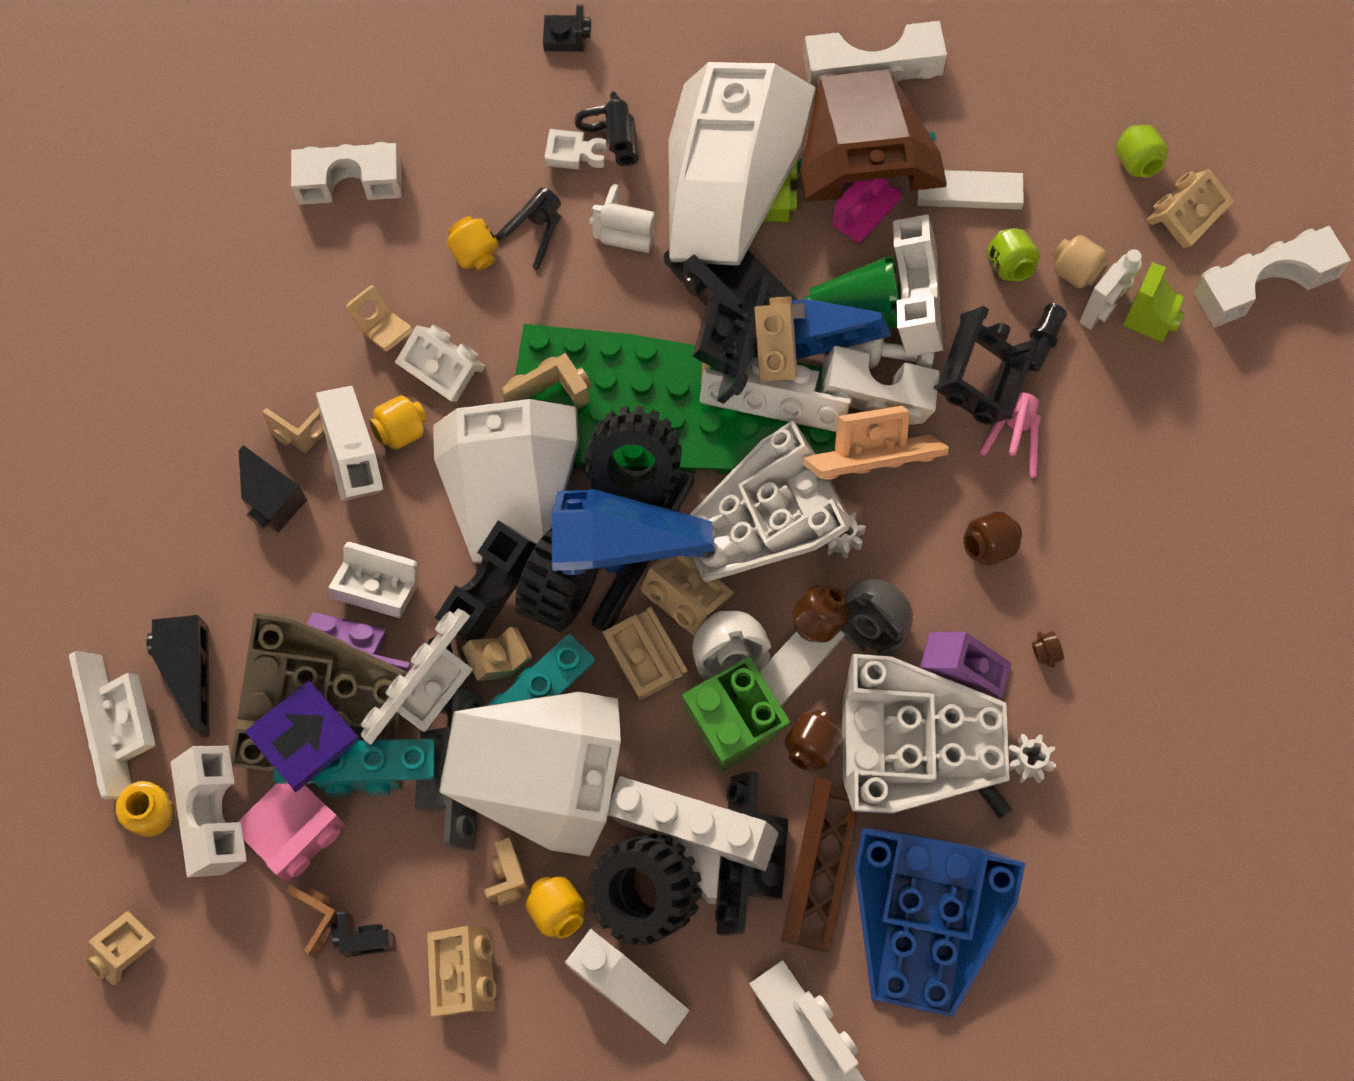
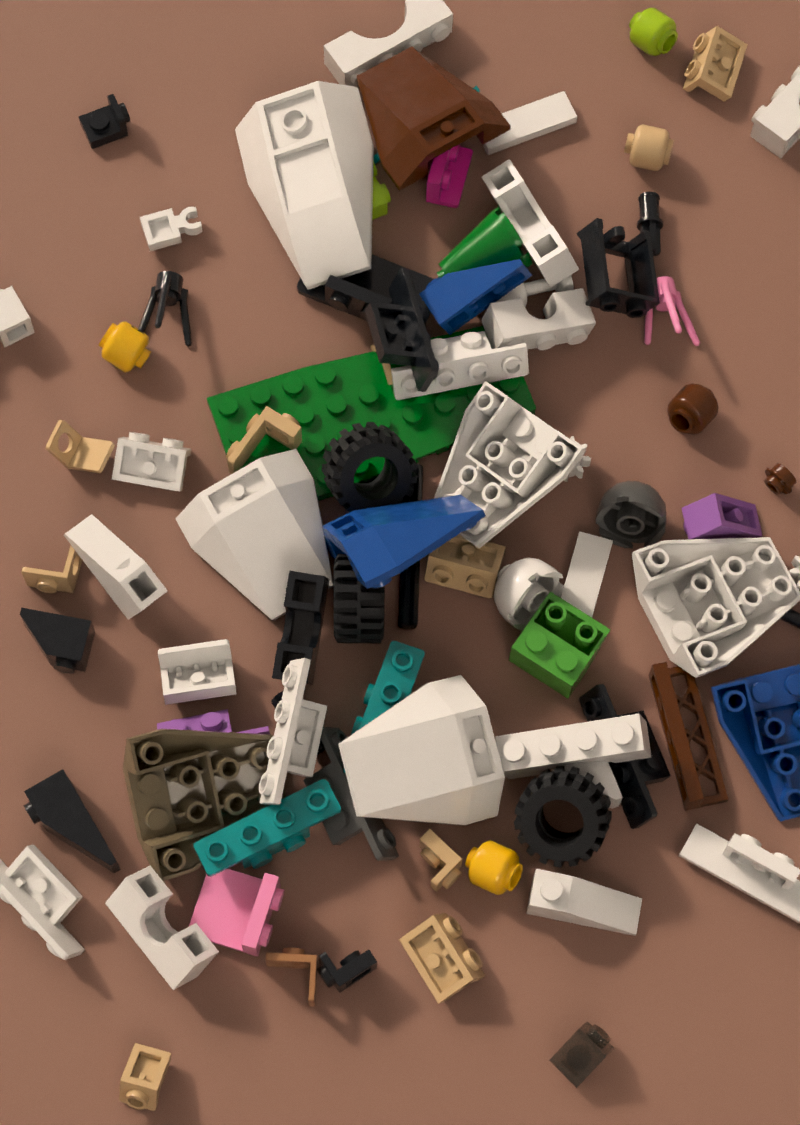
camera: 30 degrees left, 0 degrees up
(145, 809) = (97, 942): yellow head -> none
(302, 736) = (216, 825): dark purple tile -> none
(398, 422) = (144, 529): yellow head -> none
(497, 656) = (338, 686): tan bracket -> none
(619, 127) = (201, 189): black piece -> none
(623, 225) = (249, 275): white piece -> none
(645, 653) = (457, 630): tan plate -> none
(777, 338) = (443, 317): tan bracket -> none
(813, 740) = (632, 637): reddish brown head -> none
(820, 614) = (589, 531): reddish brown head -> none
(872, 442) = (560, 371): light nougat bracket -> none
(1013, 255) = (591, 164): lime head -> none
(1111, 287) = (689, 160): white plate -> none
(1155, 306) = (728, 160): lime arch -> none

